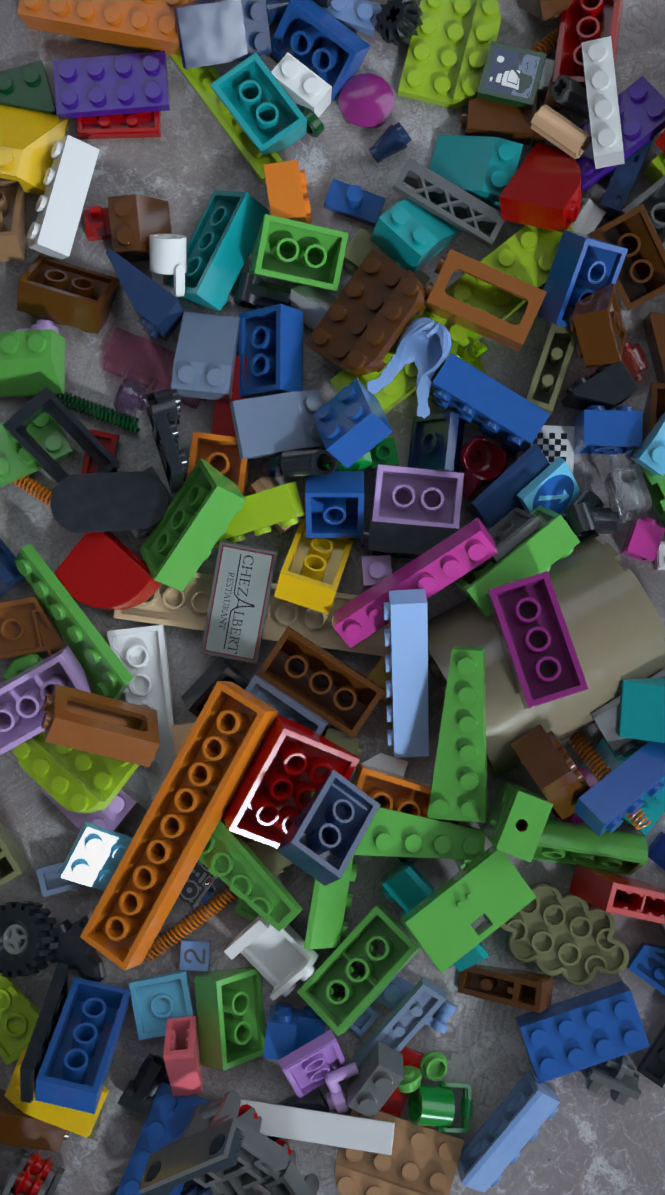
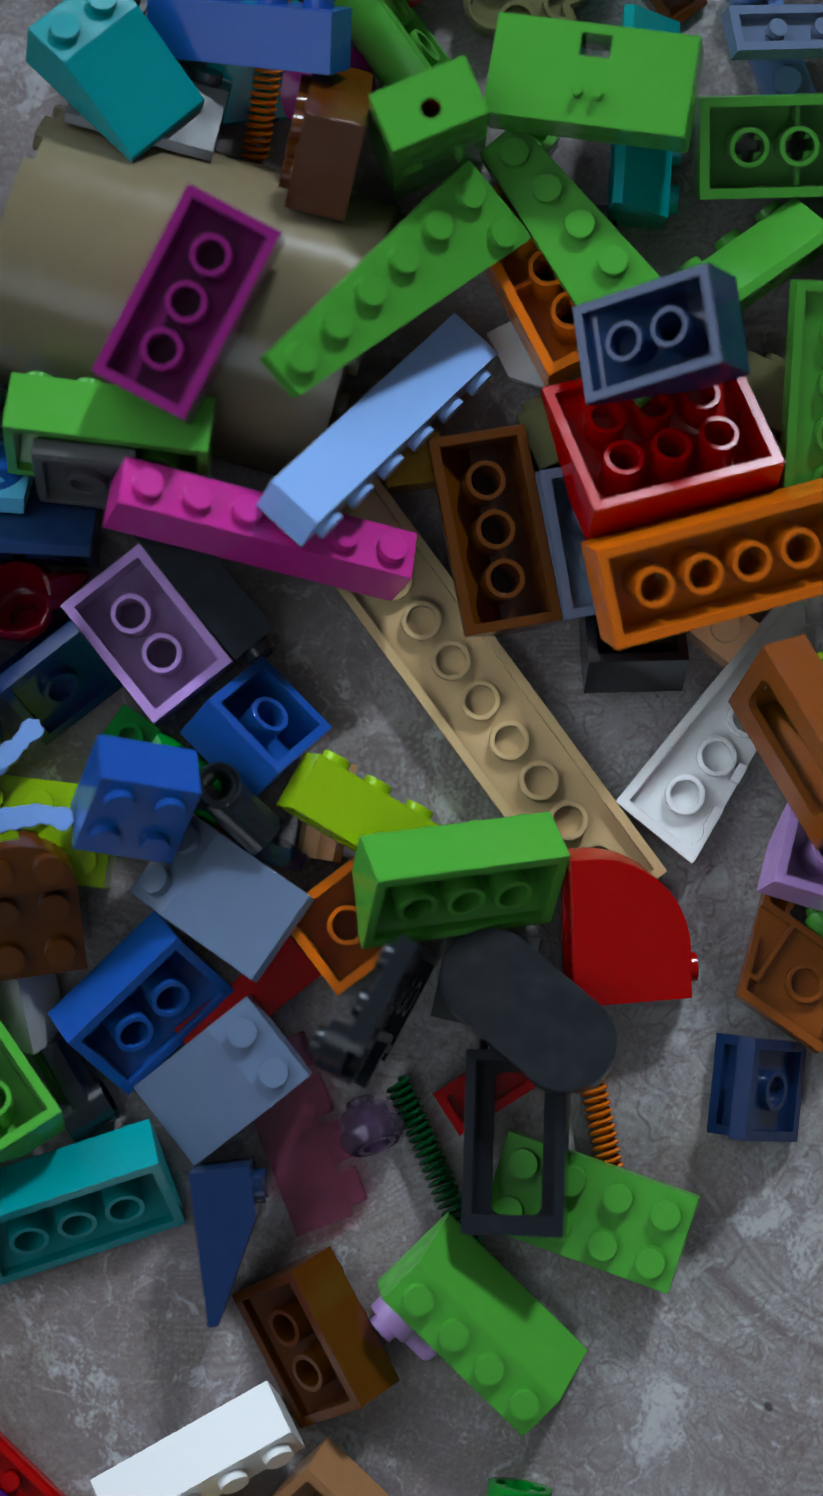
camera: 135 degrees left, 0 degrees up
(87, 644) = (731, 869): bright green wing -> none
(97, 223) = (185, 1389): red tile -> none
(133, 221) = (140, 1328): reddish brown slope -> none
(169, 258) = (147, 1245): white piece -> none
(239, 601) = (493, 730): light grey tile -> none
(313, 570) = (364, 675): yellow slope -> none
(375, 569) = (288, 601): lavender brick -> none

